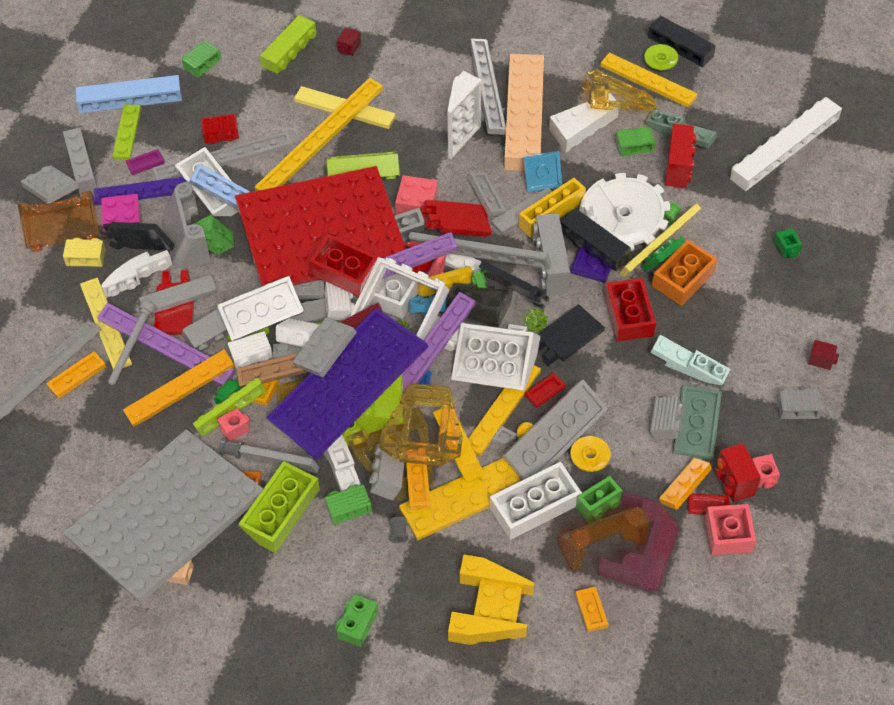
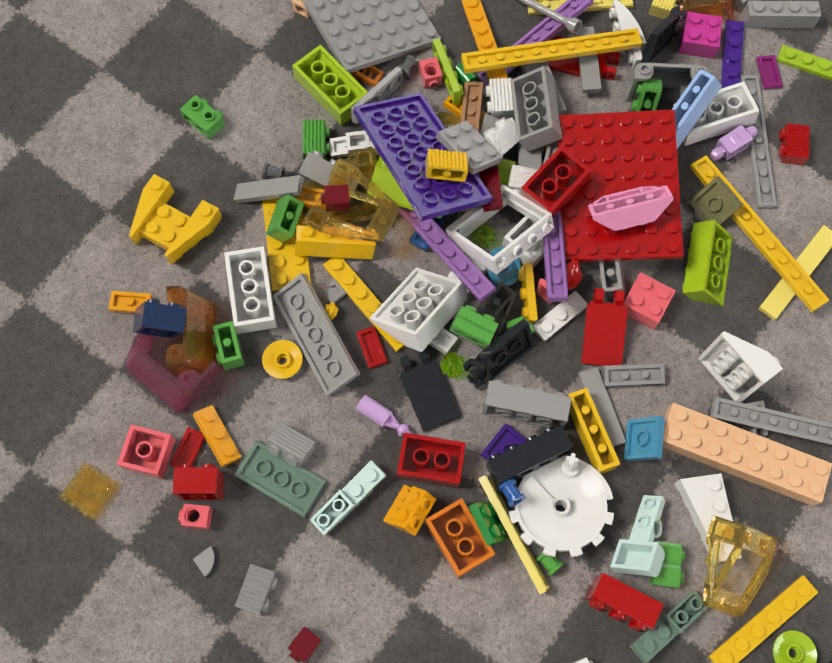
camera: 105 degrees right, 15 degrees up
(188, 317) = (551, 50): none -> yellow plate
(235, 169) = (733, 142): none -> lavender piece
(304, 165) = (715, 202): none -> olive plate
(346, 203) = (631, 207): none -> bright pink wedge
(360, 347) = (446, 165): none -> yellow brick
(420, 438) = (335, 198): none -> dark red brick
(424, 518) = (268, 189): none -> light grey tile
(453, 488) = (285, 218): none -> bright green brick
(493, 252) = (543, 329): light grey tile -> none
(502, 298) = (474, 326): none -> bright green brick
(606, 361) = (380, 415): none -> lavender wheel
(611, 541) = (159, 319): none -> dark blue brick
(634, 240) = (511, 492): none -> blue bush
(639, 153) = (640, 553): none -> light aqua plate
(679, 311) = (409, 509): none -> light orange plate
(786, 572) = (89, 491): none -> clear yellow plate
(795, 454) = (205, 561): none -> light grey tile

